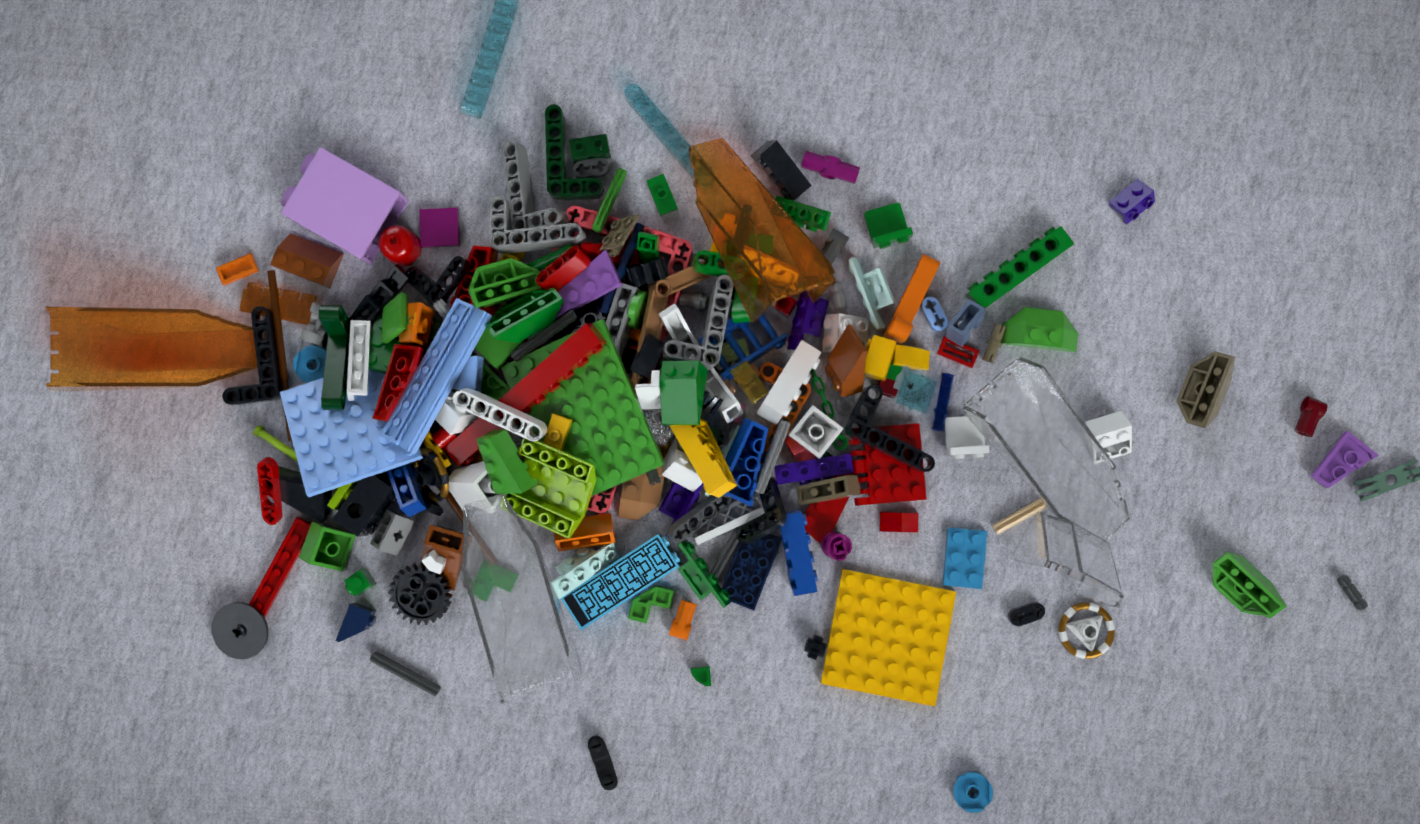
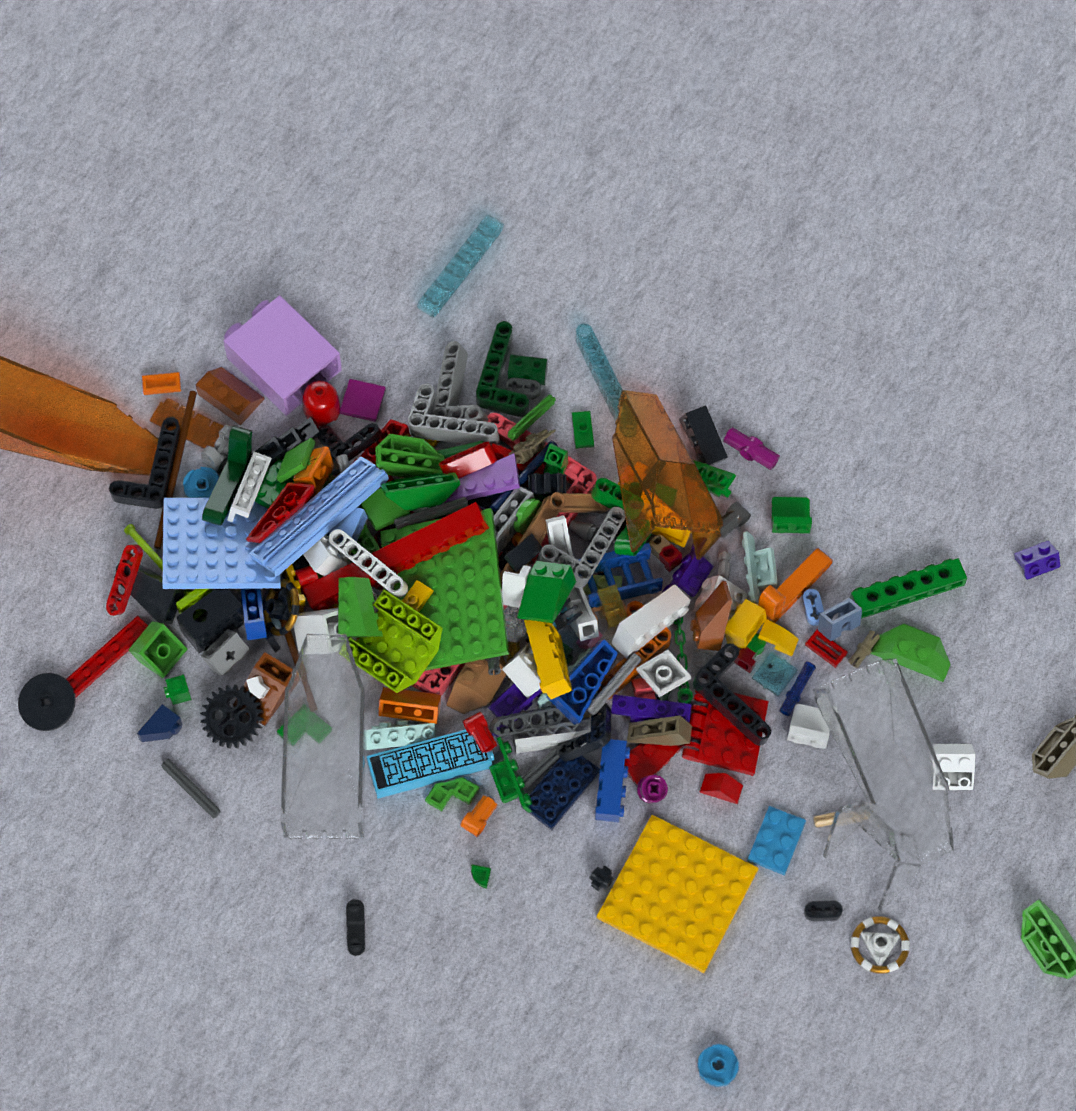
camera: 15 degrees right, 20 degrees down
(656, 541) = (478, 728): none -> red piece

